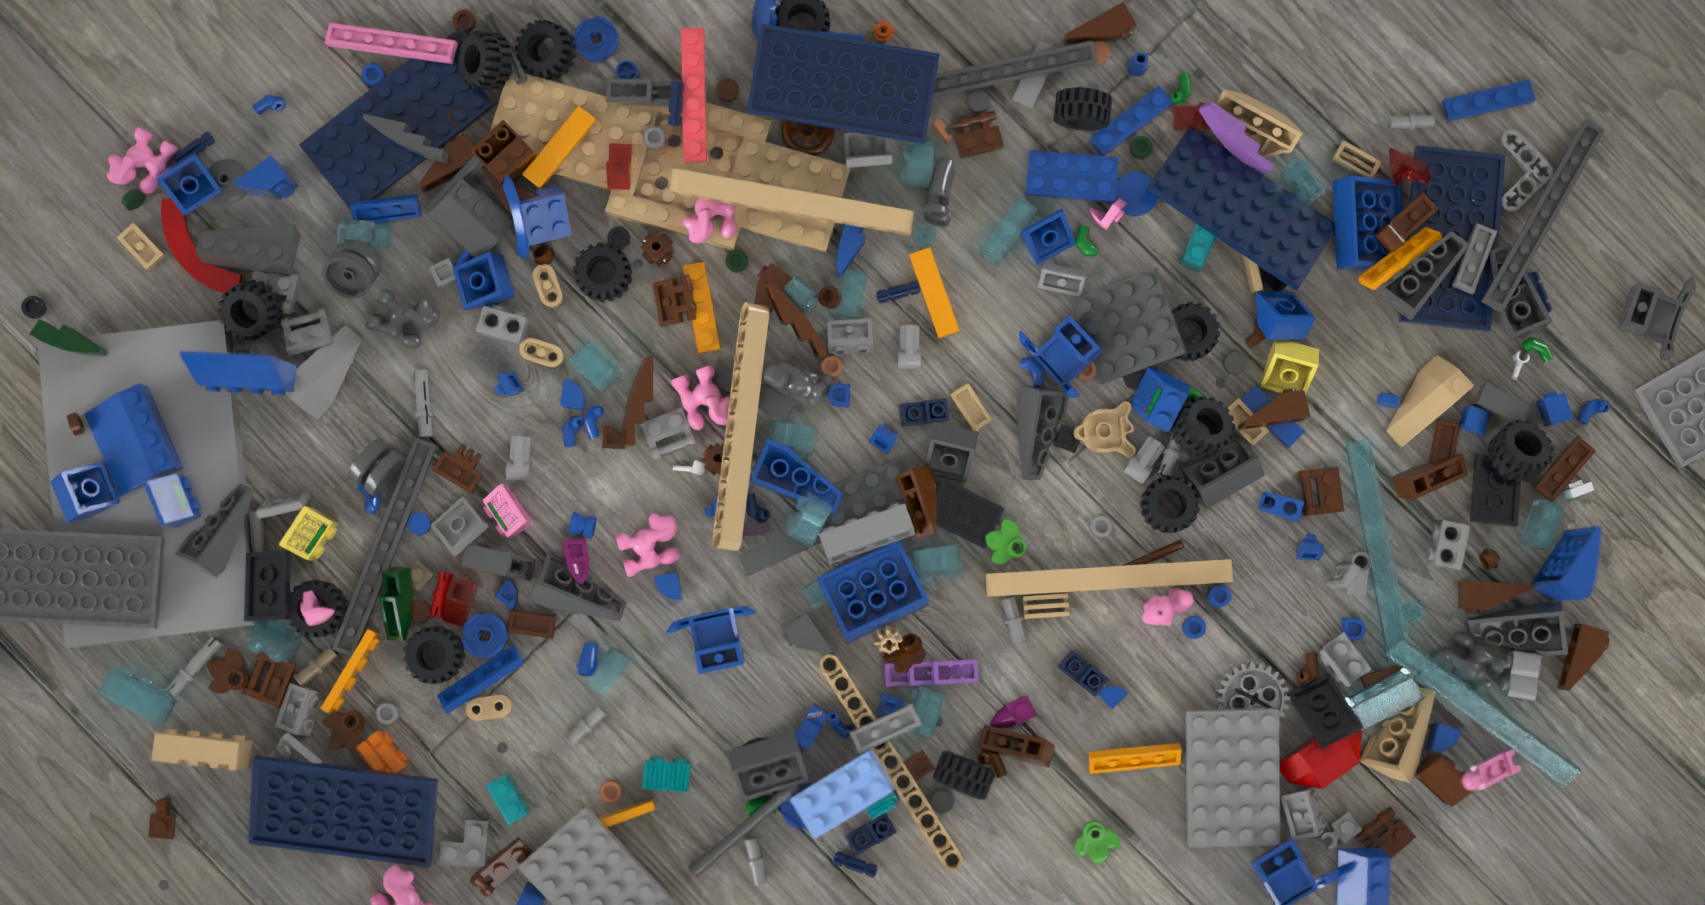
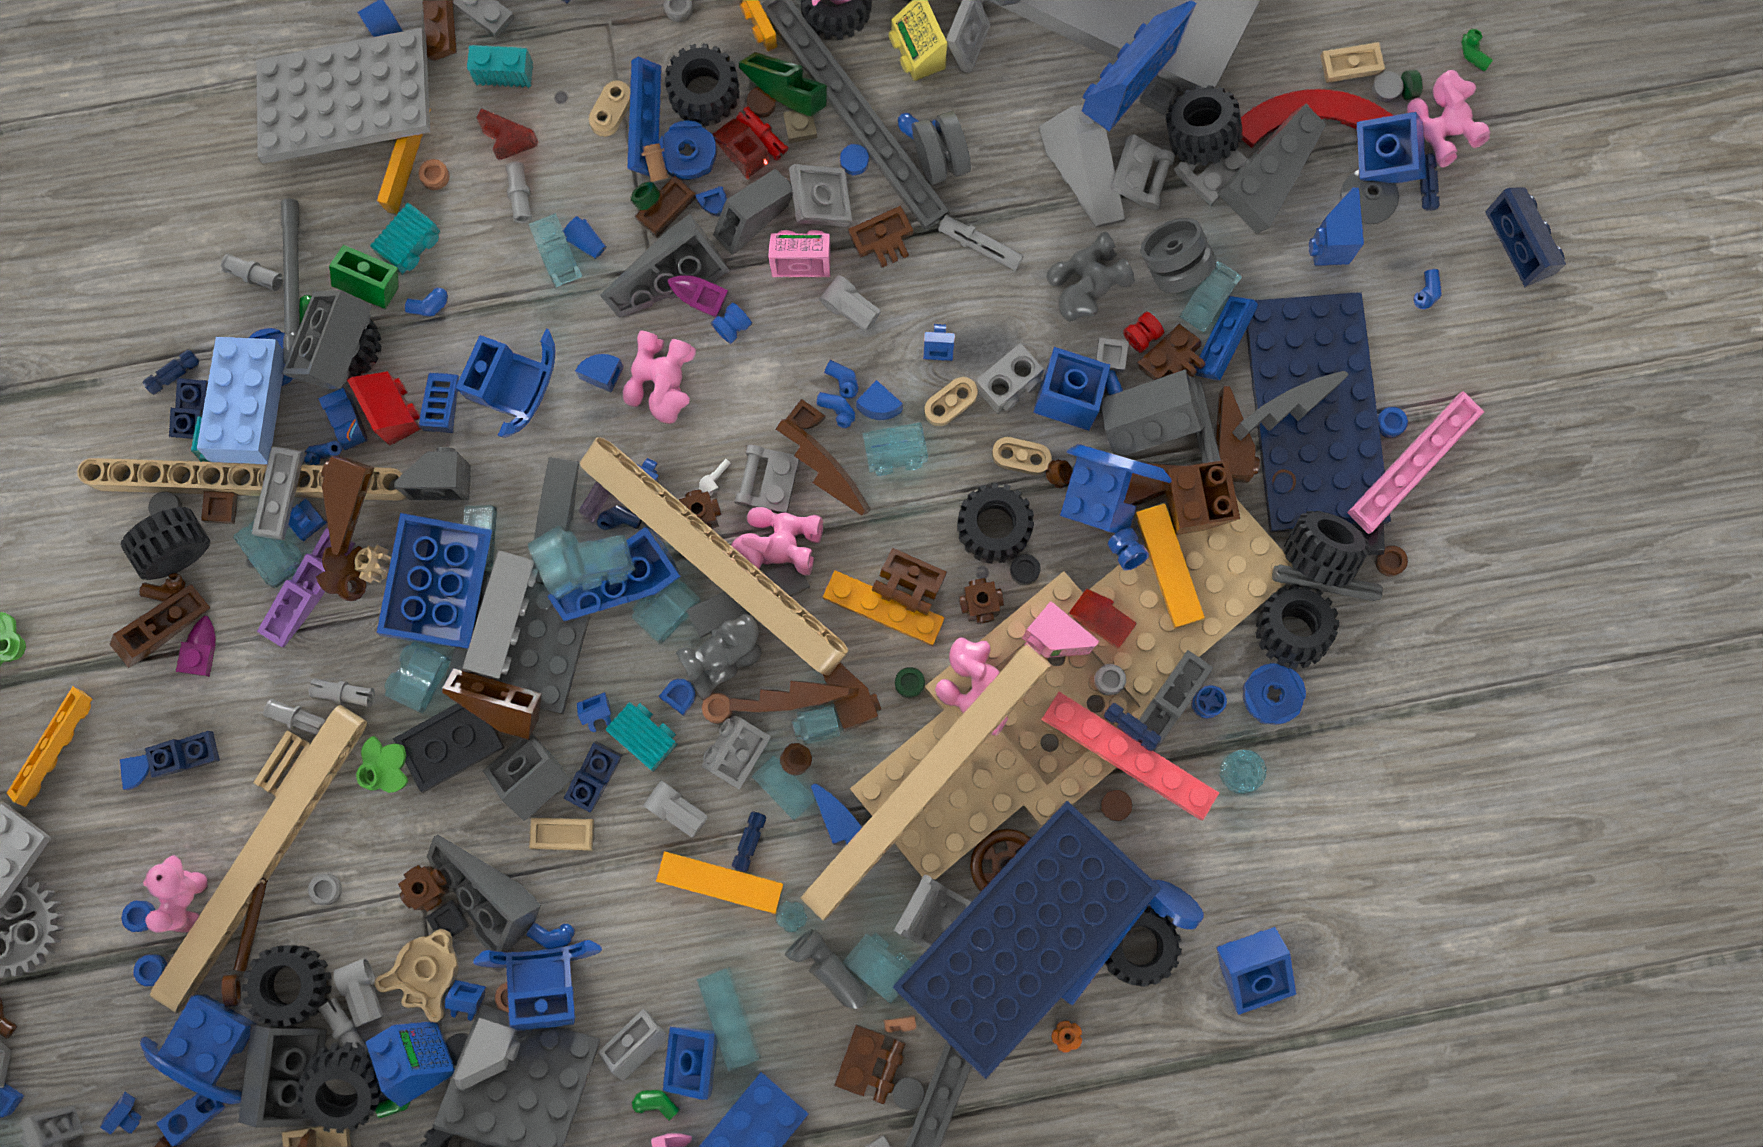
camera: 125 degrees right, 5 degrees down
(82, 176) = (1472, 51): none -> green arm
(143, 214) = (1387, 86): none -> light grey tile
(194, 64) = (1525, 235): none -> dark blue slope
(415, 262) = (1143, 332): none -> red wheel
(419, 234) = (1173, 355): none -> reddish brown hinge
(507, 647) = (655, 162): none -> medium nougat pin
(534, 640) = (645, 195): none -> dark green tile
(551, 755) = (510, 136): none -> clear red slope
(566, 178) = (1129, 551): none -> blue wheel
(649, 184) = (1058, 634): none -> bright pink slope
(656, 28) = (1242, 771): none -> clear light blue wheel
(700, 728) = (429, 305): none -> blue arm
(710, 781) = (364, 276): none -> green brick
(774, 666) = (447, 423): none -> blue slope
(783, 704) = (386, 406): none -> red slope
(793, 489) = (598, 561): none -> clear light blue brick
(855, 684) = (344, 494): none -> reddish brown slope
(880, 398) = (642, 736): none -> teal brick
(979, 602) = (341, 692): none -> light grey pin
(1054, 472) = (433, 890): none -> reddish brown brick
(1104, 394) = (464, 998): none -> blue tile
(1123, 352) = (486, 1053): none -> light grey slope
(1196, 536) = (231, 990): none -> reddish brown tile
(1239, 528) = (201, 1047): none -> blue piece

